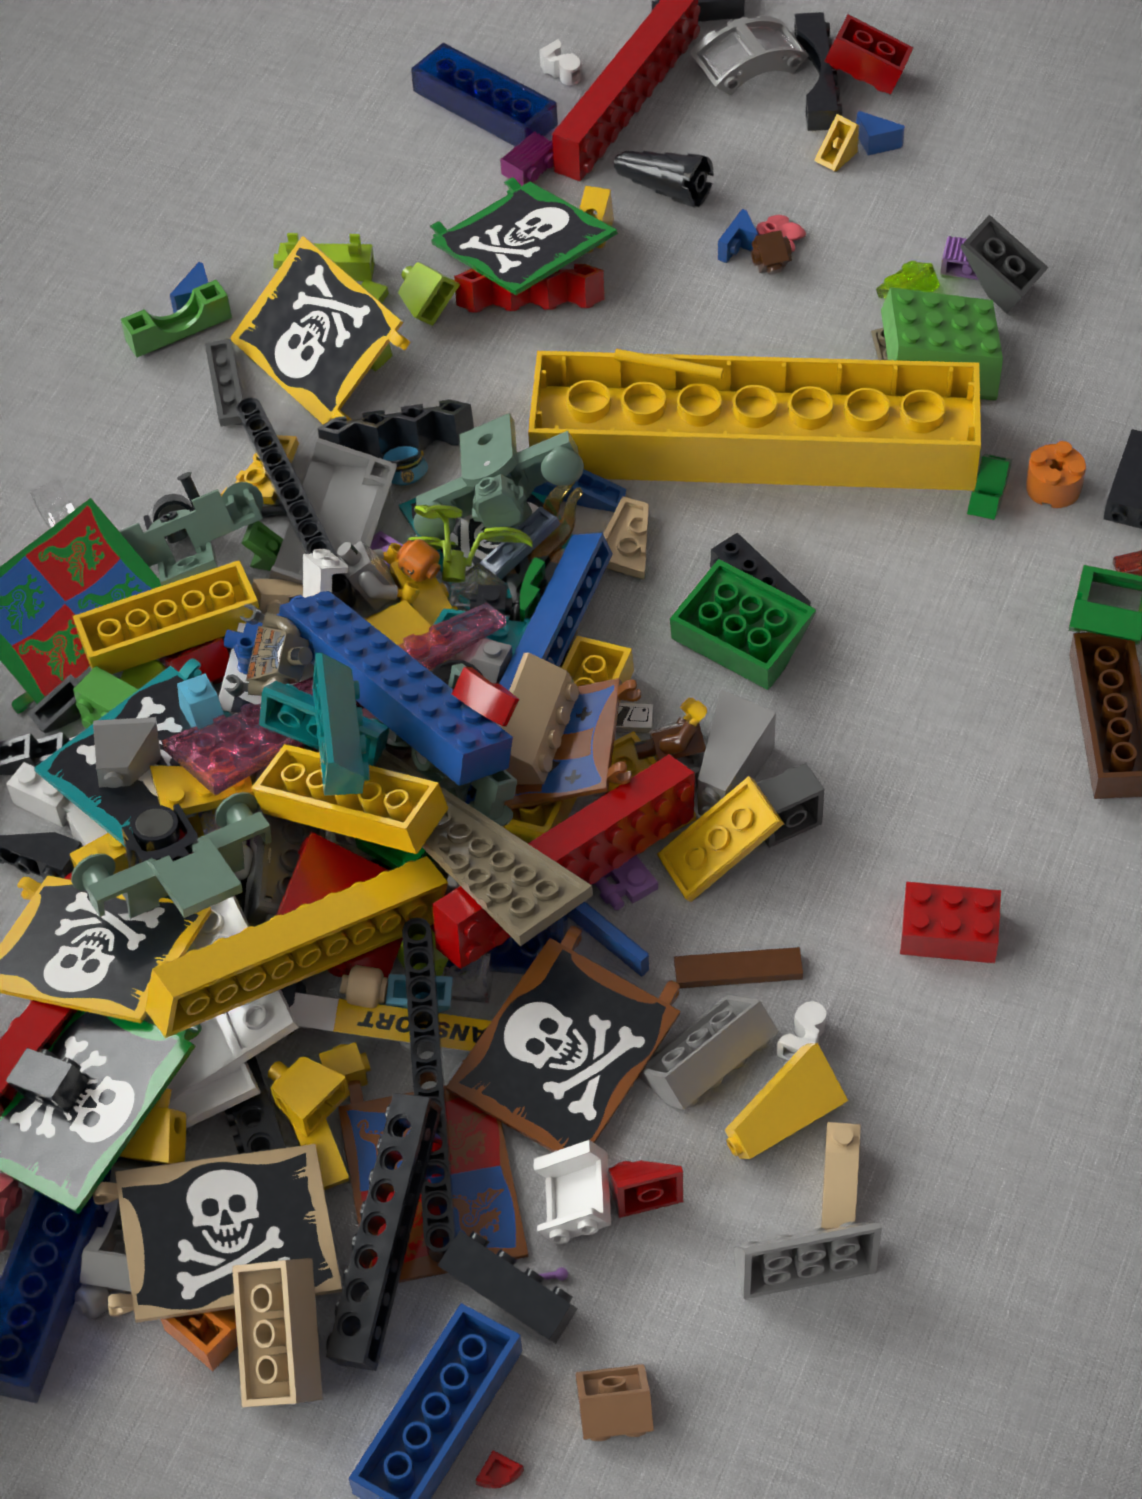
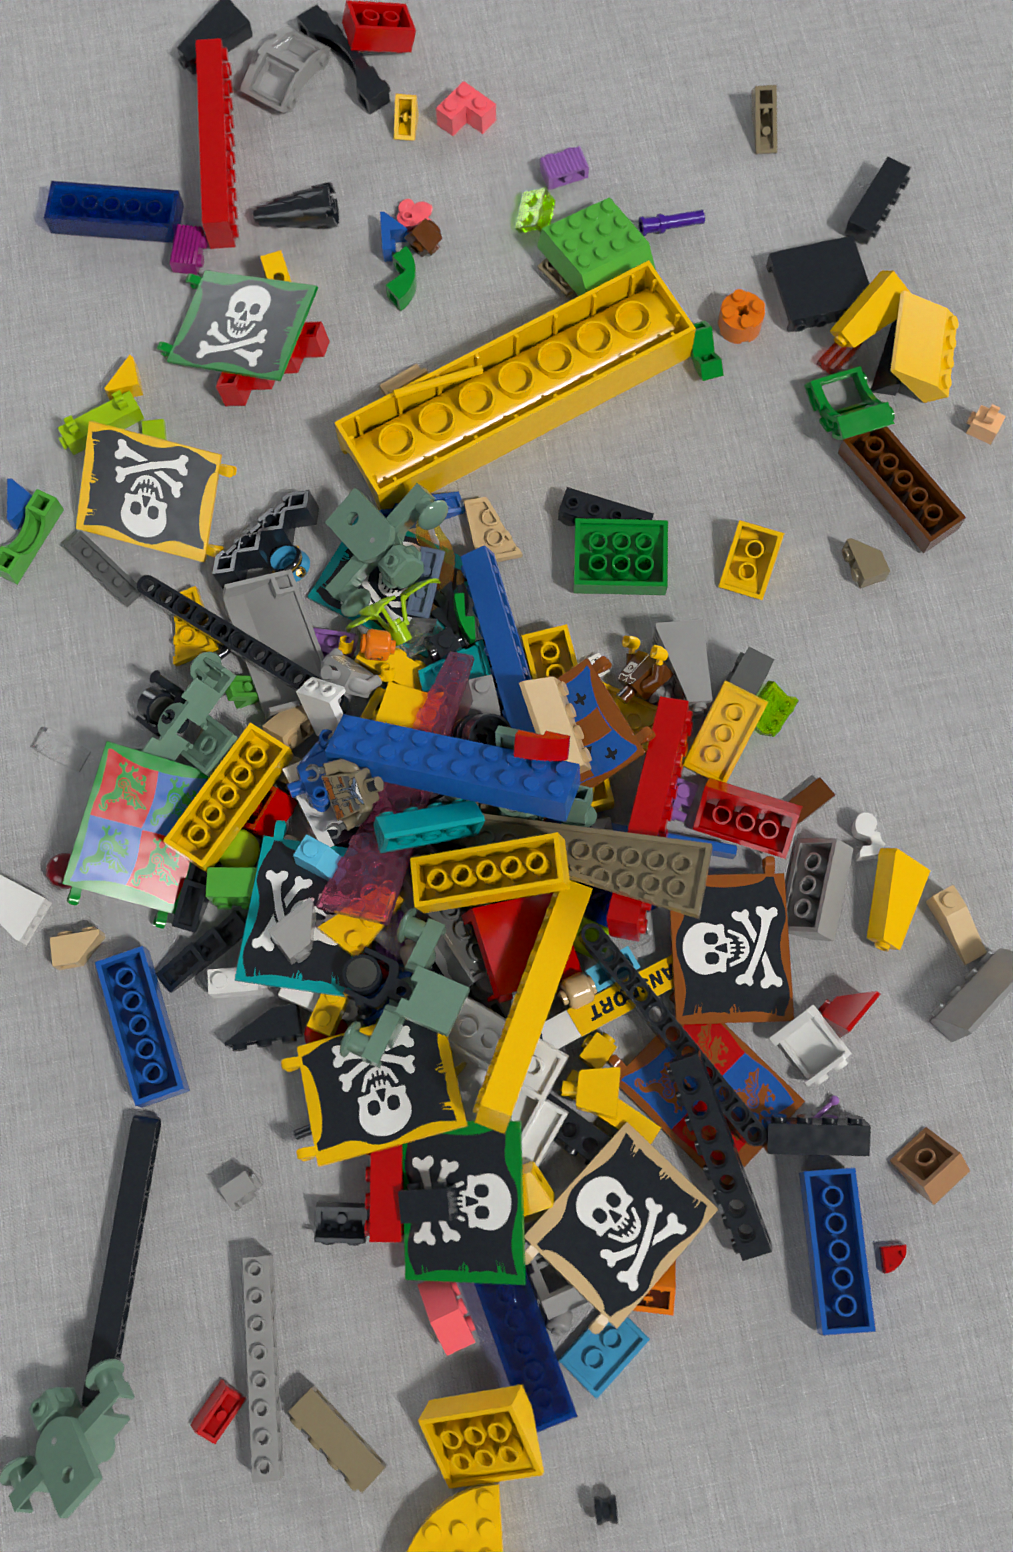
camera: 35 degrees left, 20 degrees up
(115, 1361) = (602, 1356): none -> dark azure tile
(277, 1333) = (705, 1269): tan slope -> none
(338, 727) = (462, 836): teal slope -> none
(383, 235) = (125, 380): none -> yellow slope
(426, 291) = (199, 409): lime torso -> none
(558, 65) = (155, 150): white leg -> none
(683, 936) = (747, 818): none -> red slope
(720, 285) = (403, 287): none -> green brick
(793, 850) = (776, 711): none -> clear neon green bracket
(879, 134) = (428, 91): blue slope -> none
(888, 700) = (751, 559): none -> yellow slope
(904, 161) = (464, 107): none -> coral brick
(950, 922) = (902, 701): red brick -> none
(1001, 263) = (598, 163): dark grey slope -> none
(1016, 772) = (866, 563): none -> dark tan slope
(1036, 353) = (662, 223): none -> dark purple pin

